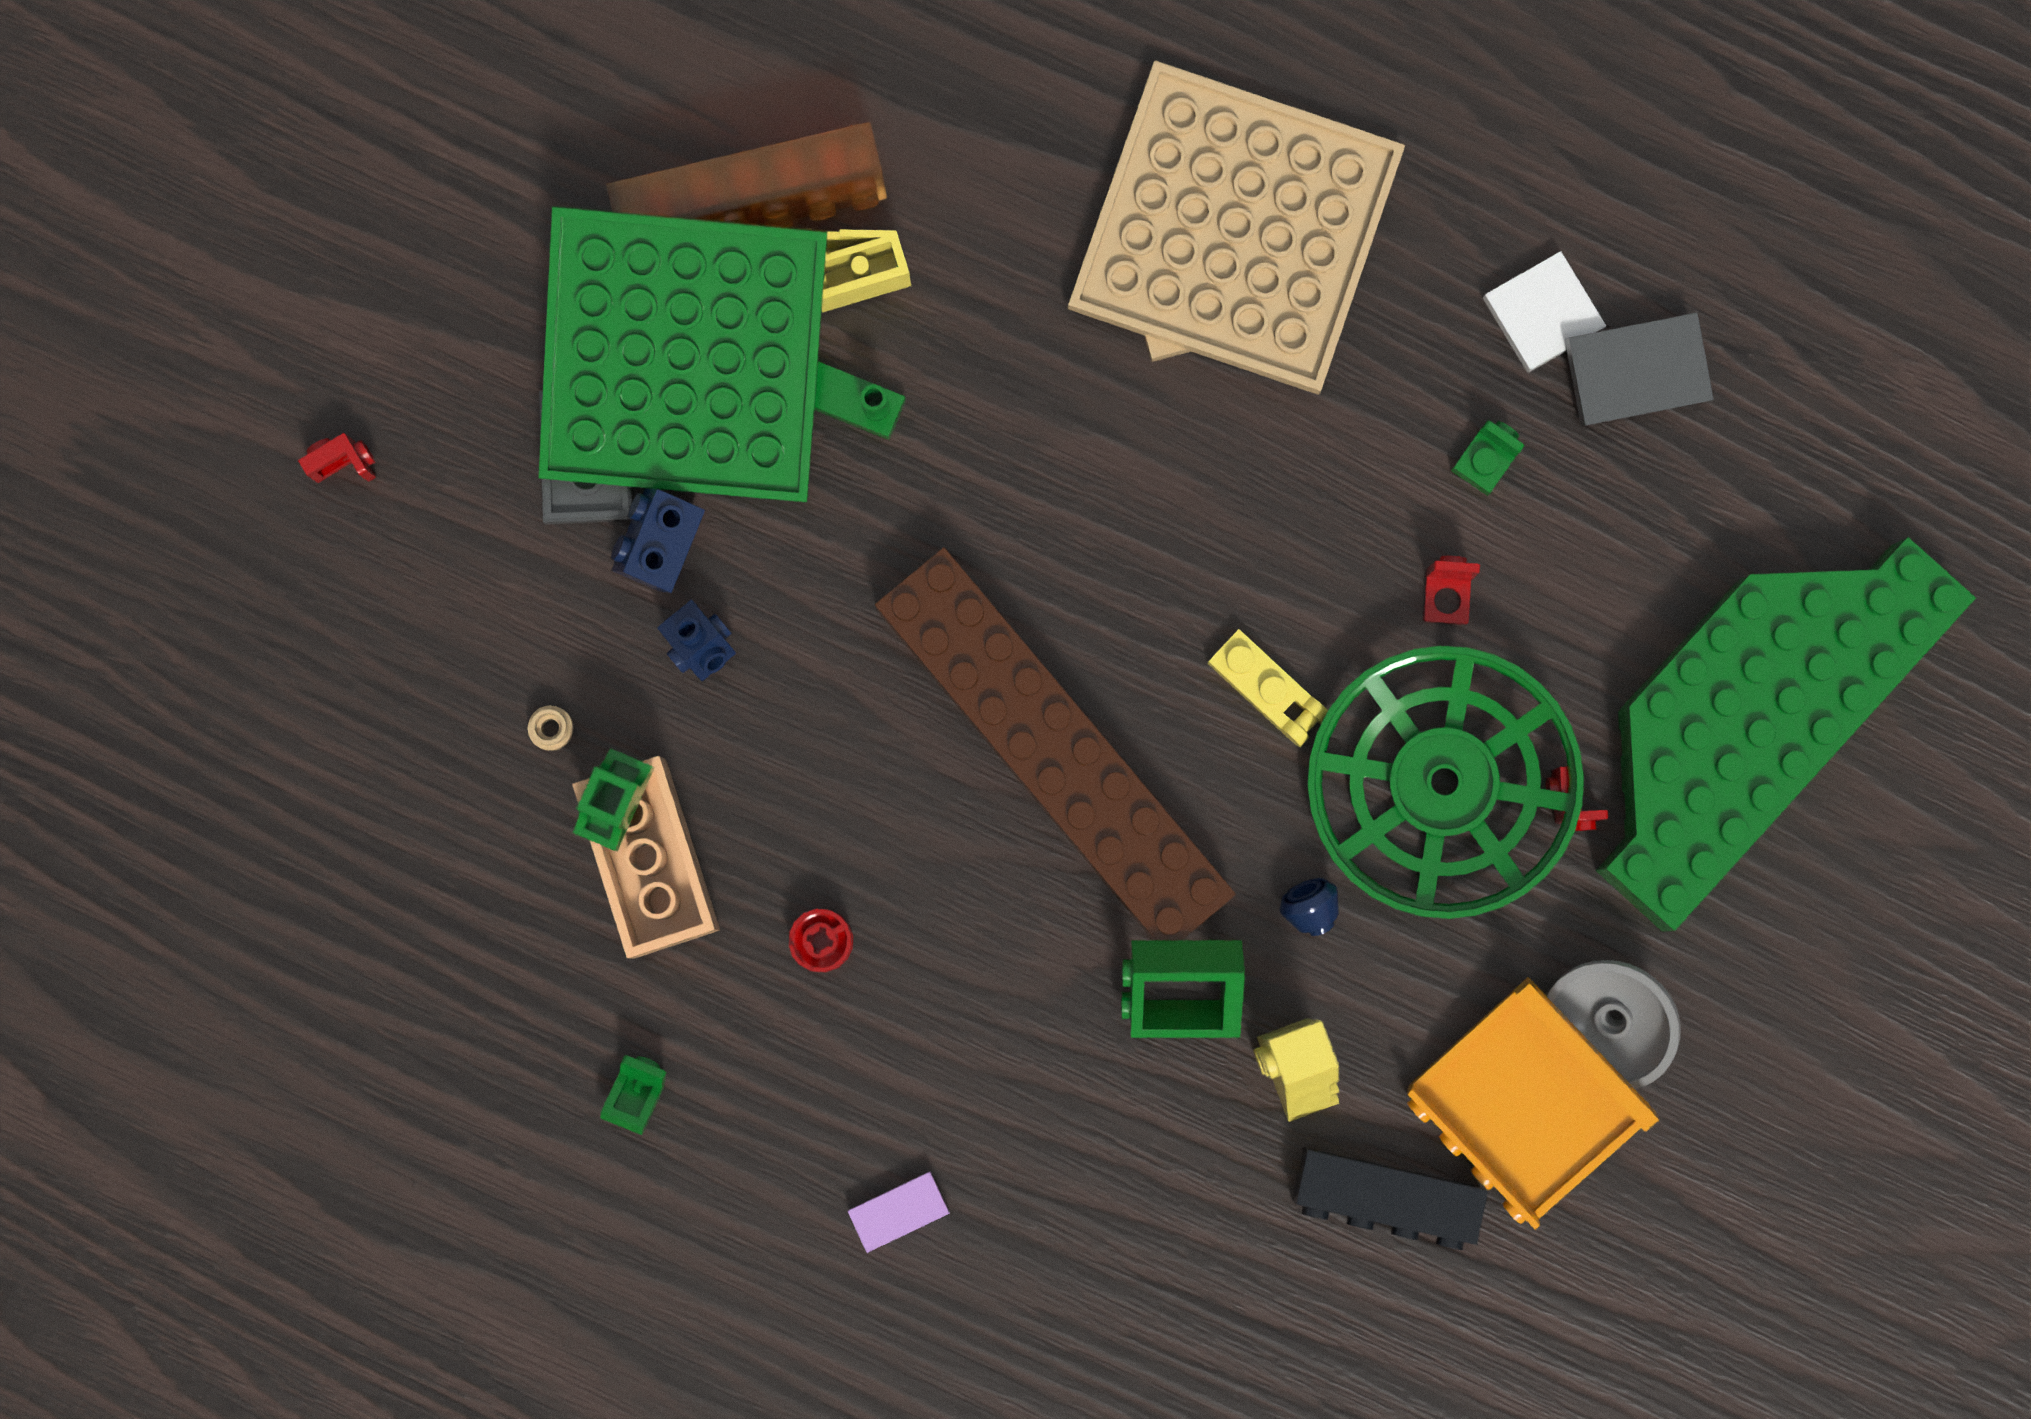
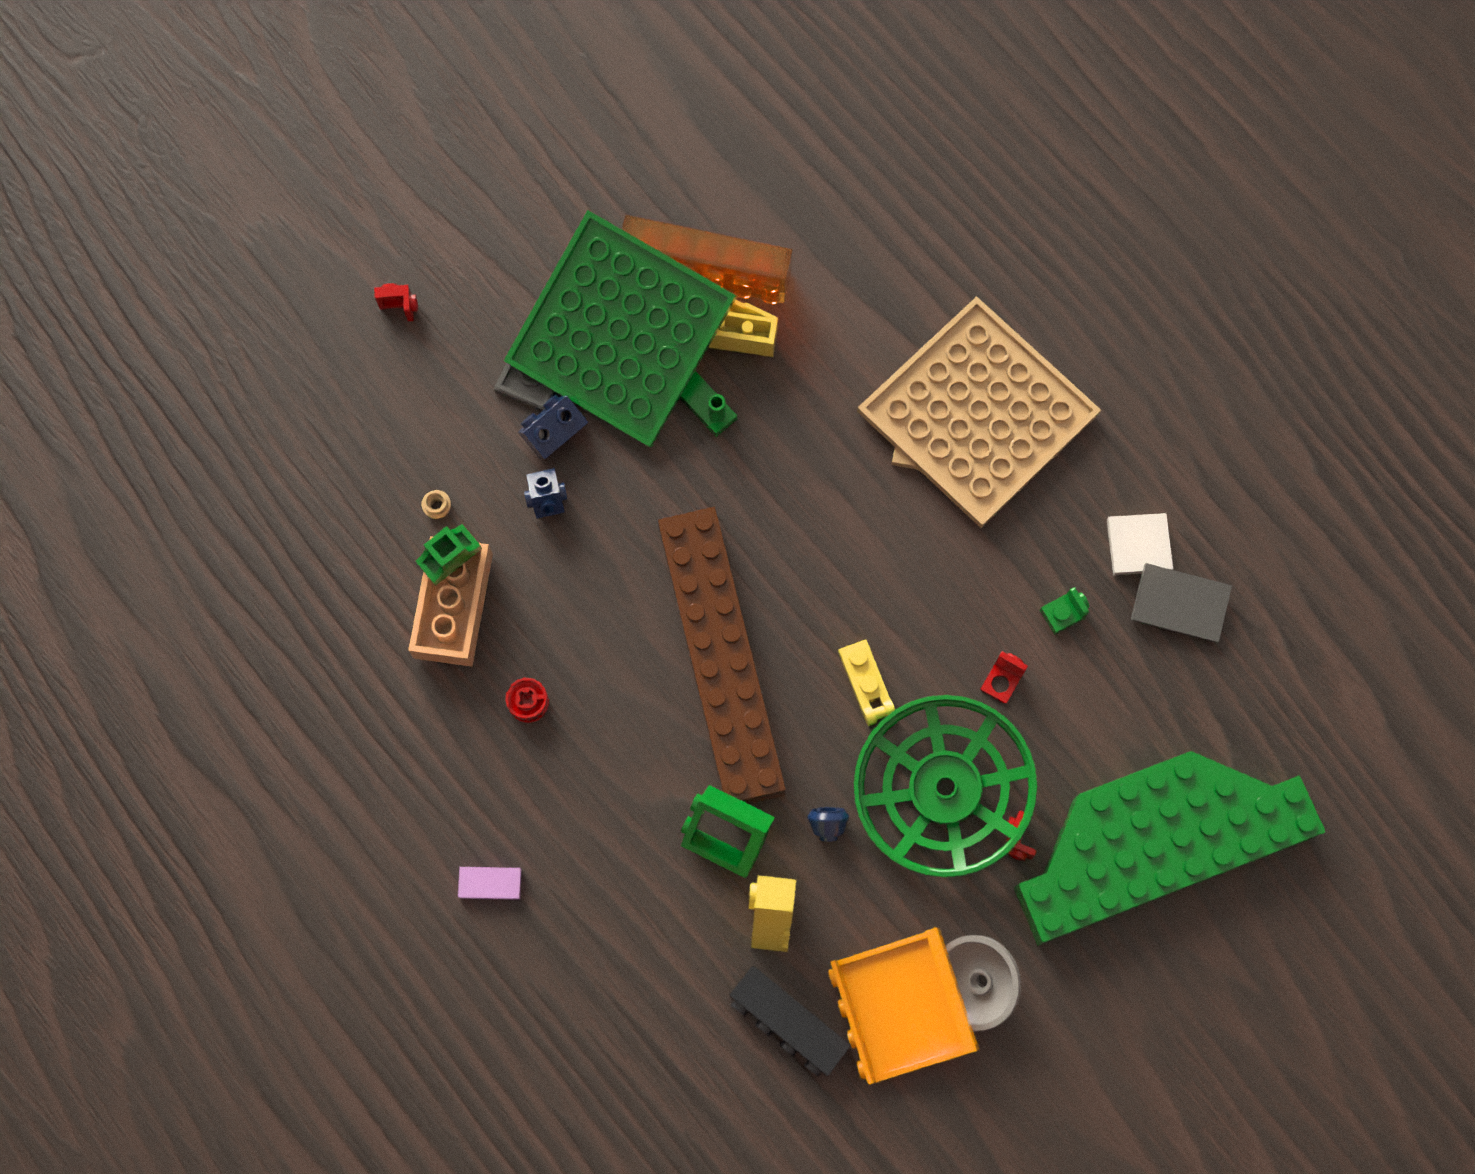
camera: 25 degrees right, 10 degrees down
(634, 1094) = (372, 735): green bracket -> none

